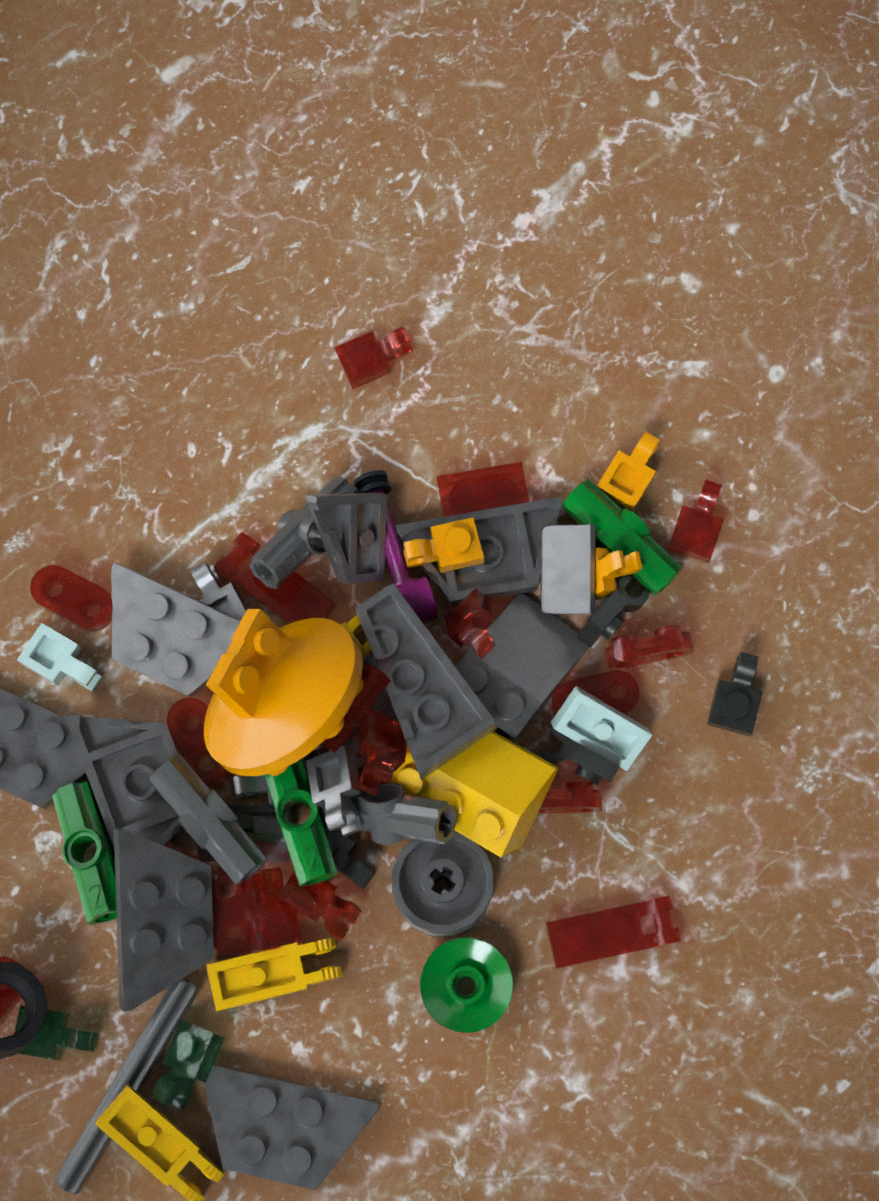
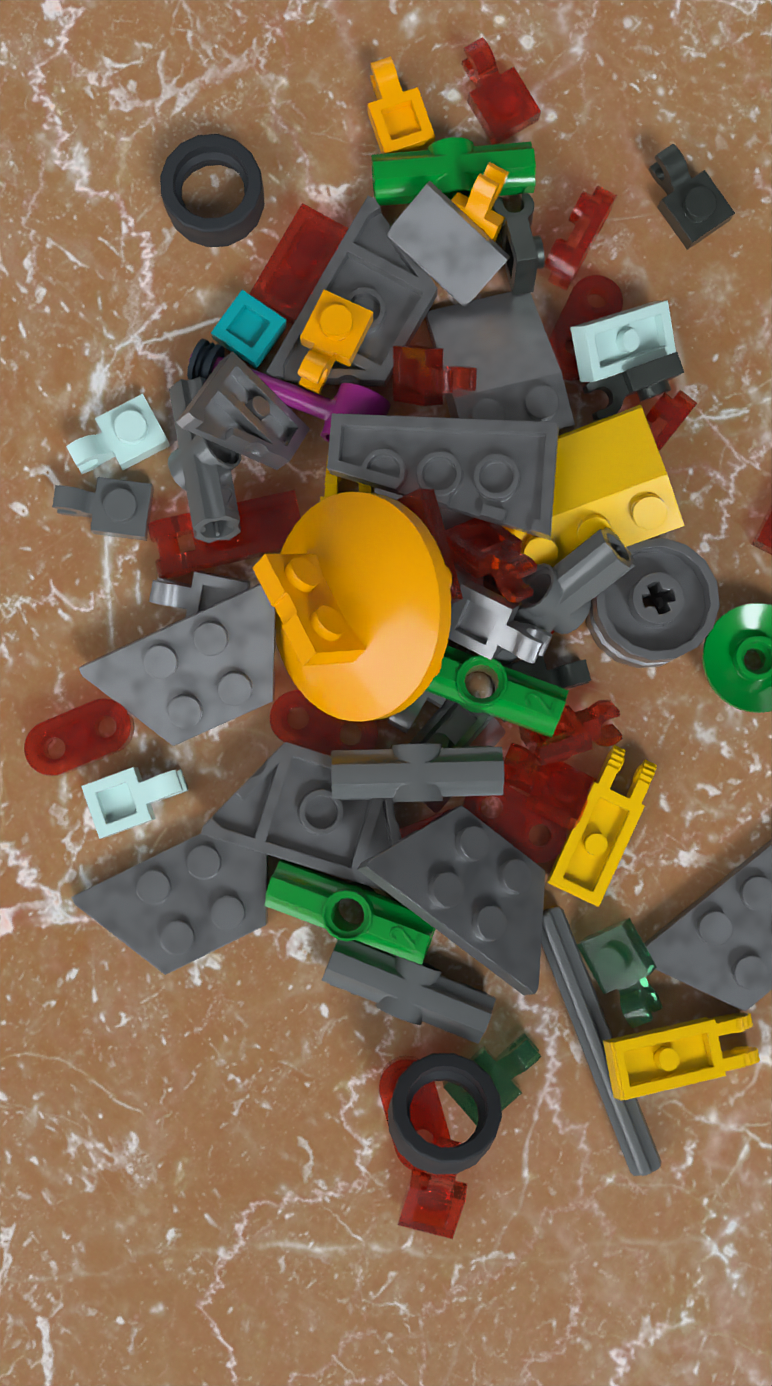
camera: 55 degrees left, 10 degrees up
(66, 932) = (409, 989): none -> dark grey piece
(236, 504) = (116, 508): none -> dark grey plate
(288, 475) = (127, 433): none -> light aqua plate
(366, 358) = (68, 265): clear red plate -> none
(415, 494) = (249, 329): none -> teal plate
(492, 373) = (212, 151): none -> black tyre

